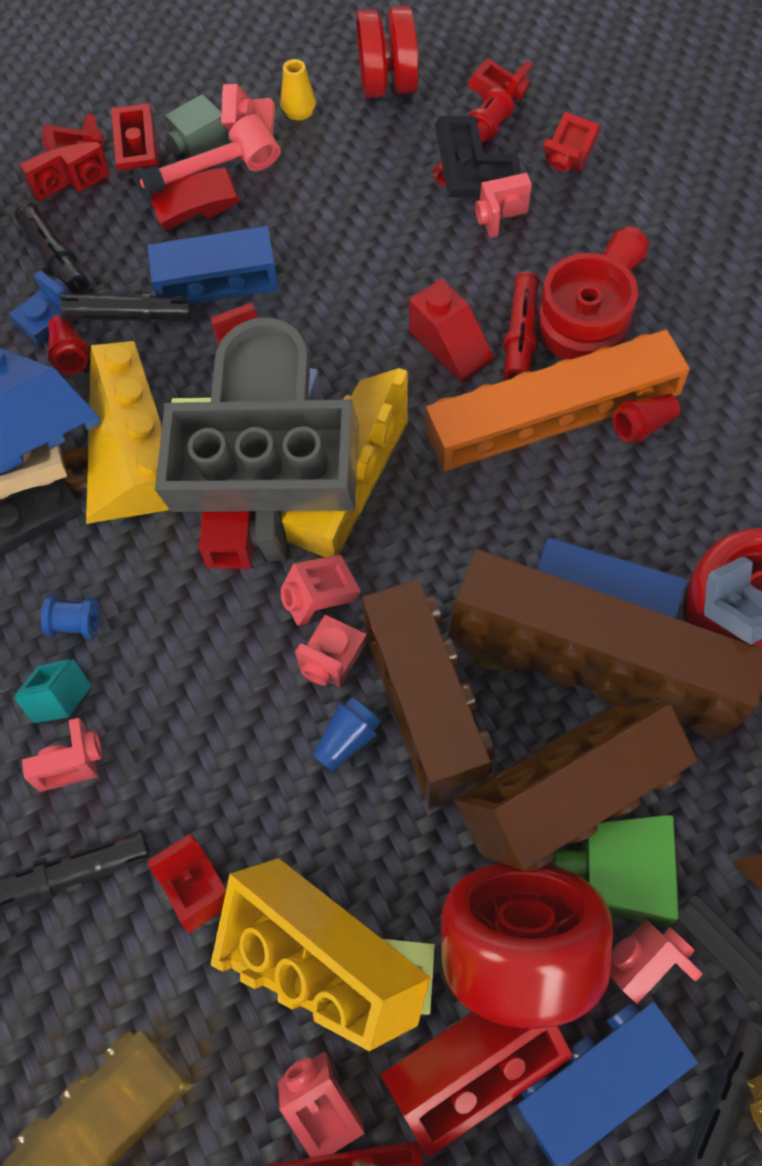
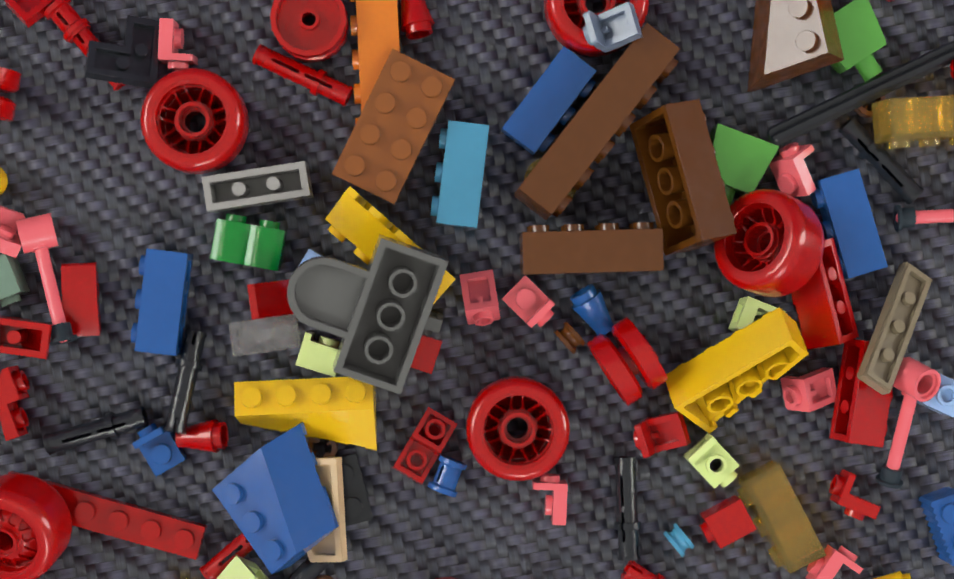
camera: 80 degrees left, 25 degrees up
(34, 963) = (678, 539): none -> dark azure bush
(52, 691) = (498, 498): teal slope -> none
(73, 1031) = (726, 522): none -> red brick
(114, 583) = (424, 445): none -> red slope
(131, 648) = (523, 455): none -> red wheel
(185, 972) = (701, 456): none -> yellowish green brick
(195, 363) = (264, 335): none -> clear plate
(281, 789) = (629, 359): none -> red wheel
(297, 714) = (569, 337): none -> reddish brown bush
(309, 312) = (248, 243): none -> green brick
(374, 310) = (257, 187): none -> light grey brick
(426, 230) = (168, 115): none -> red wheel
(449, 330) = (292, 133): red slope -> none
(470, 518) = (460, 174): none -> dark azure brick
(499, 415) = (393, 126): none -> dark orange plate

